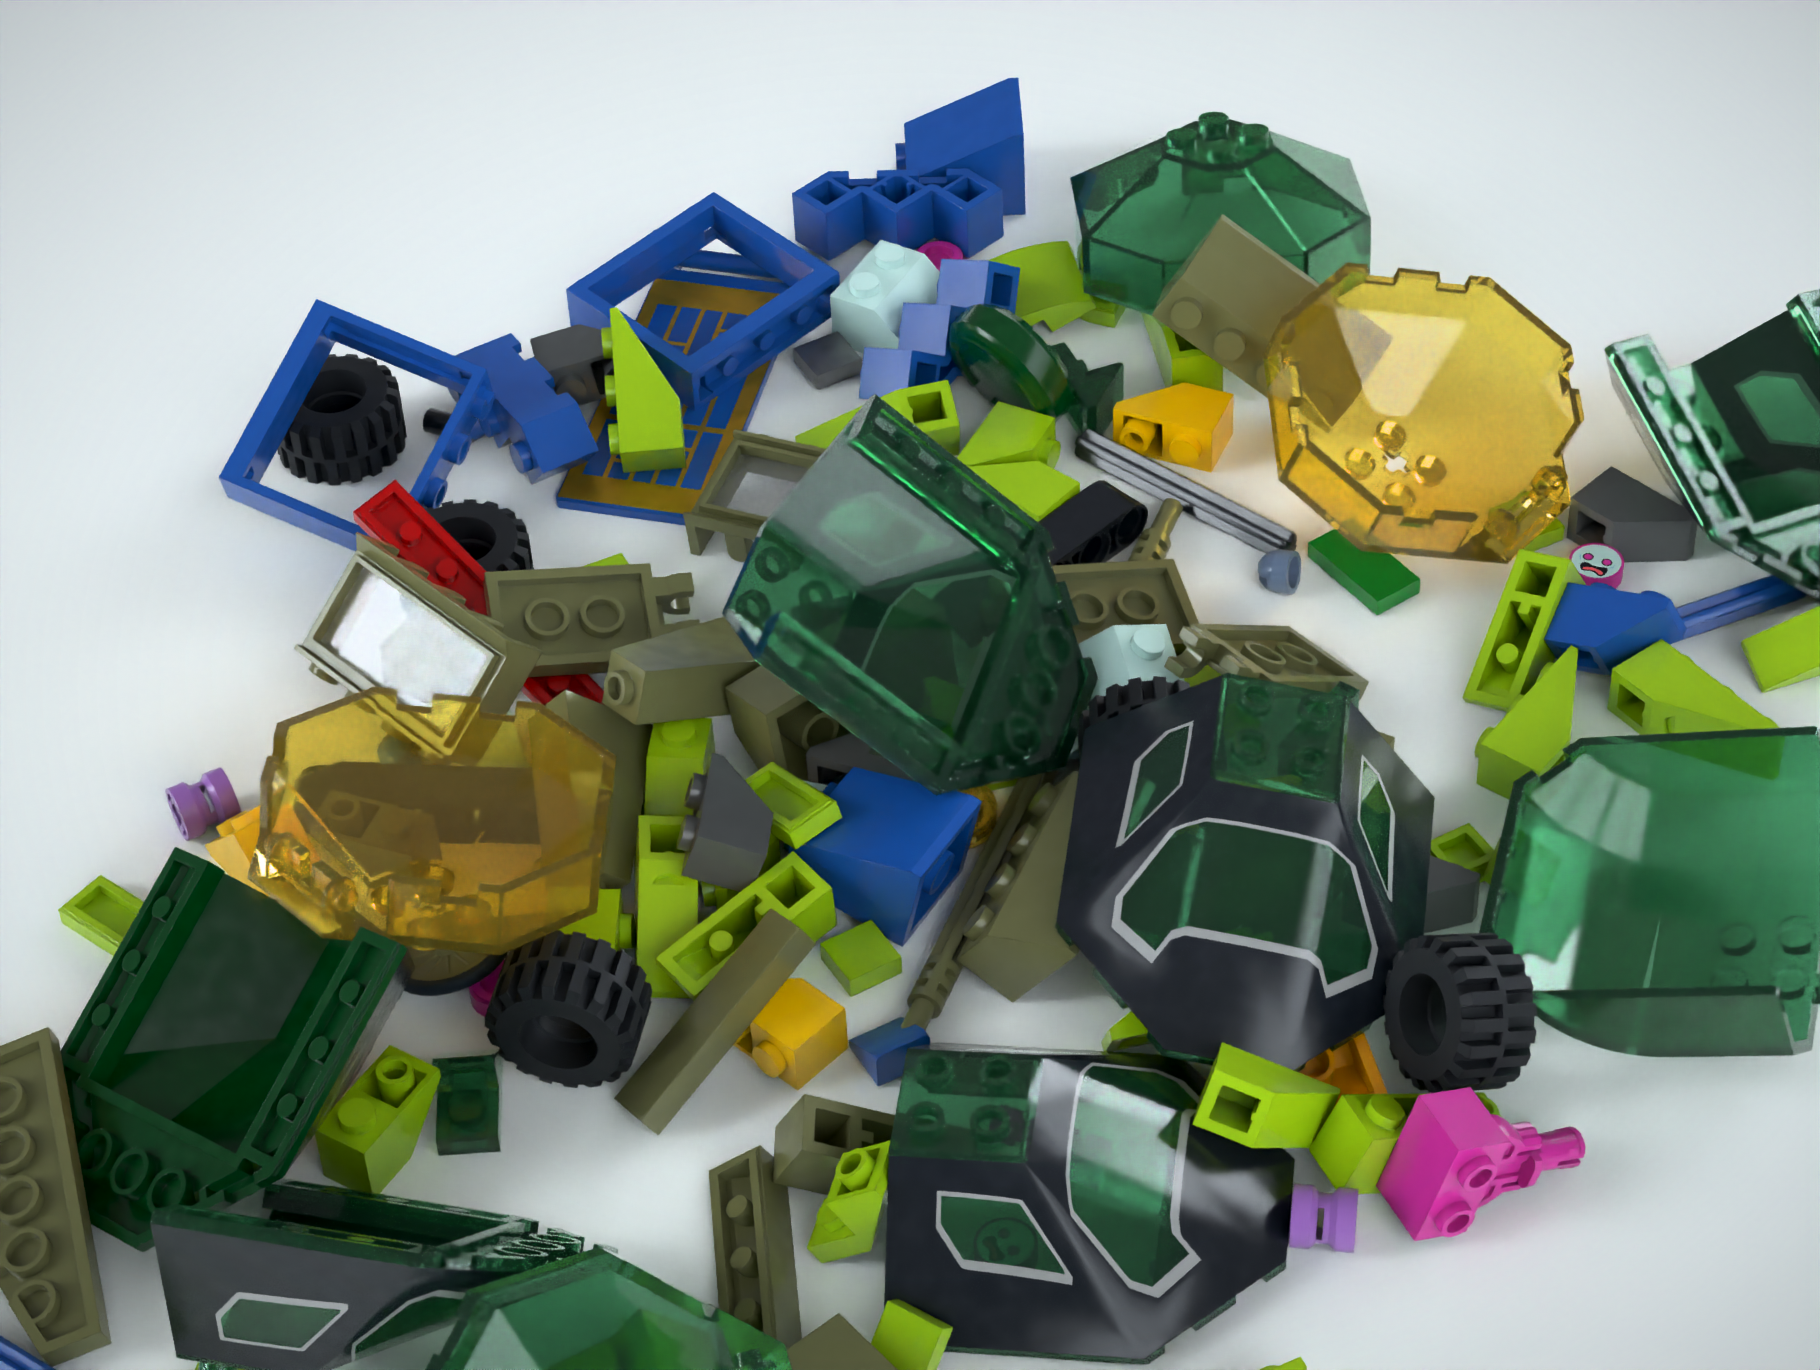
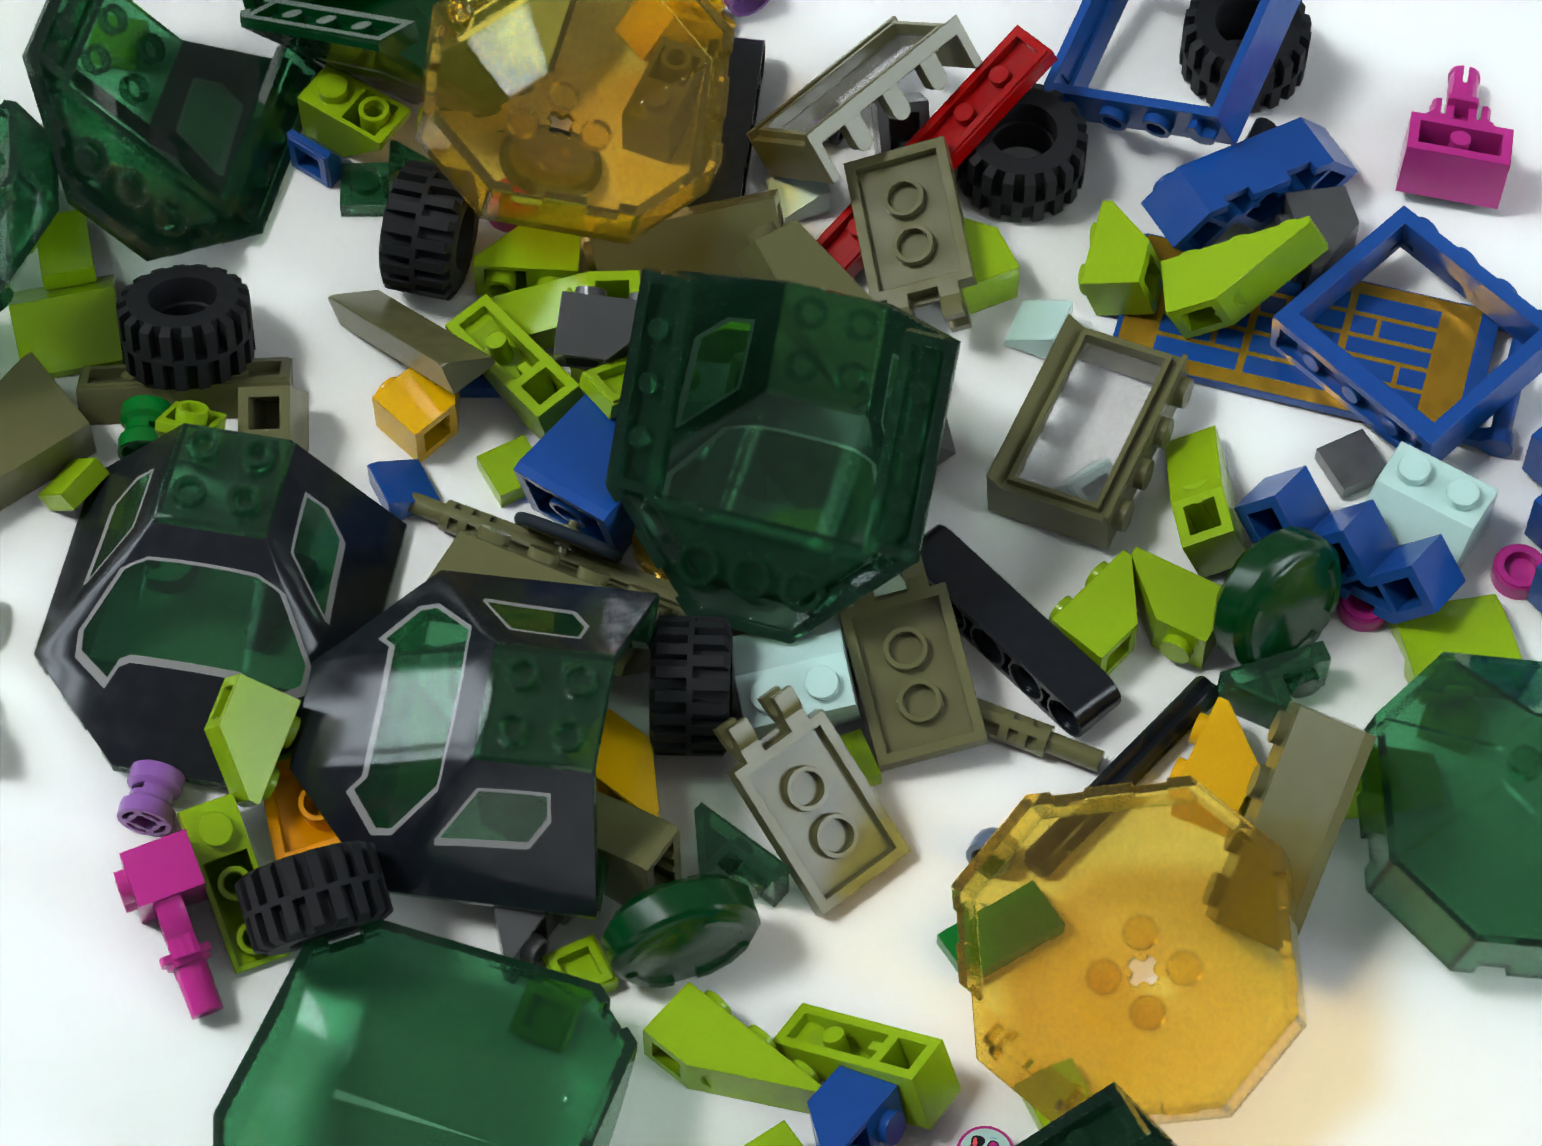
camera: 90 degrees right, 15 degrees up
(426, 1167) = (315, 158): none -> blue slope
(480, 288) = (1454, 152): none -> dark pink brick
(605, 494) = (1120, 267): none -> lime slope
(676, 551) = (1037, 325): none -> light aqua slope
(702, 1225) = (185, 327): none -> black tyre
(829, 1281) = (138, 420): none -> green wheel
(967, 875) = (568, 536): none -> black wheel
(1435, 740) = (680, 930): none -> dark green piece

